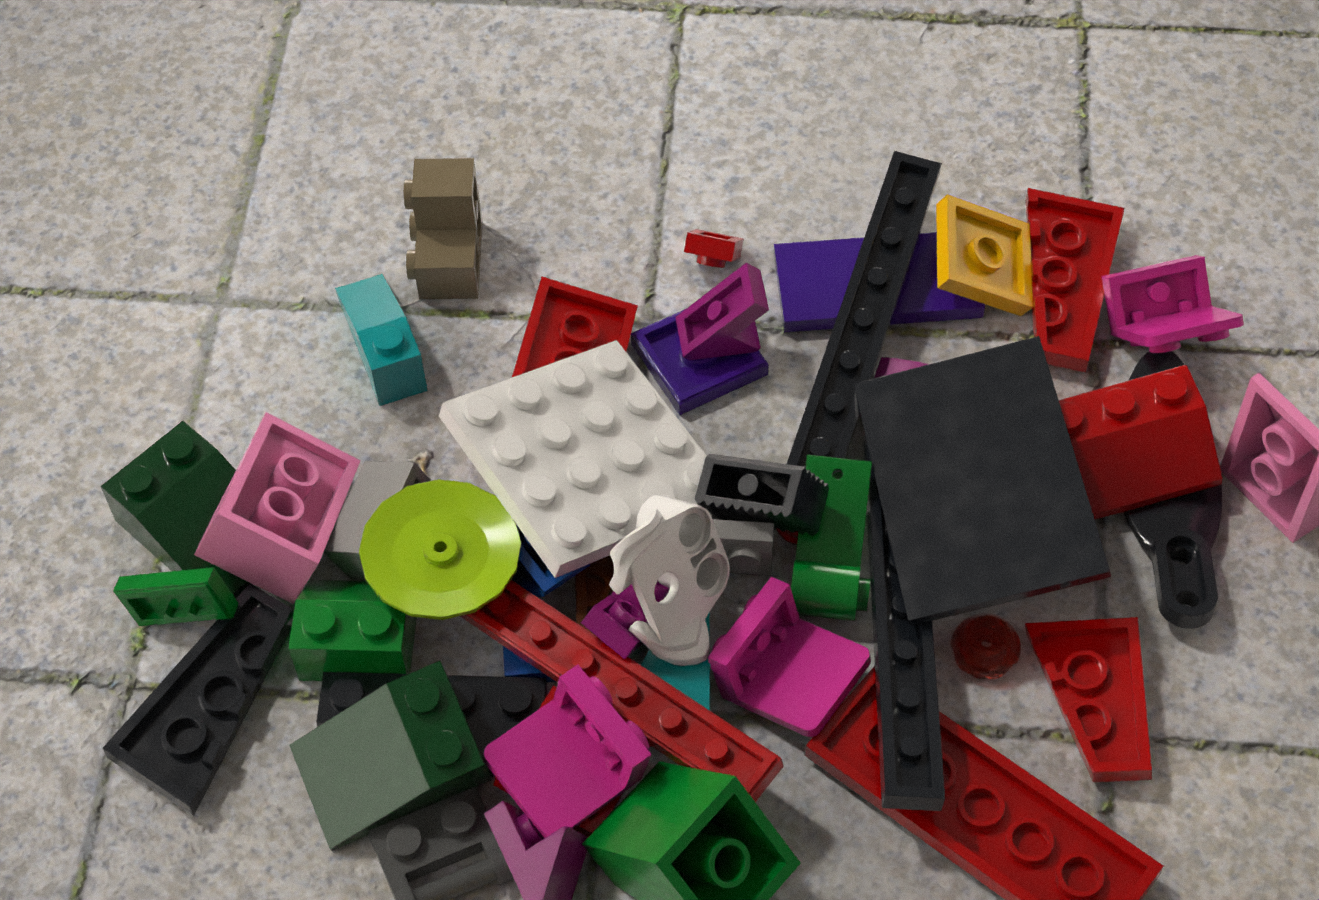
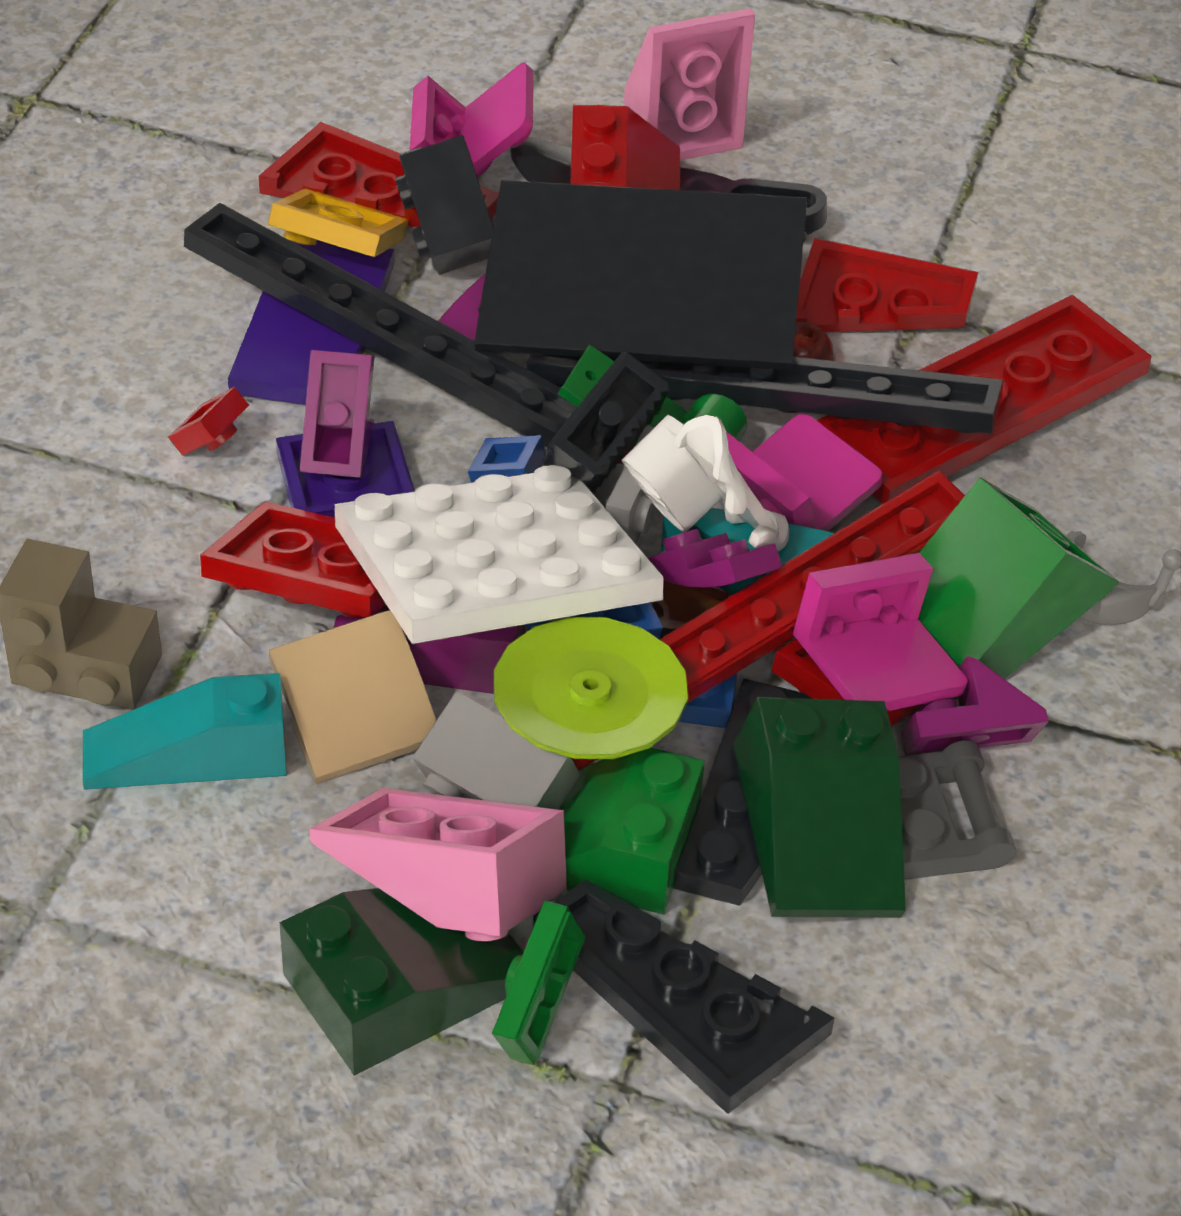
camera: 80 degrees left, 10 degrees down
(412, 413) = (353, 695): none -> tan slope
(741, 443) = (508, 456): none -> blue plate
(1036, 307) = (448, 203): none -> black hinge

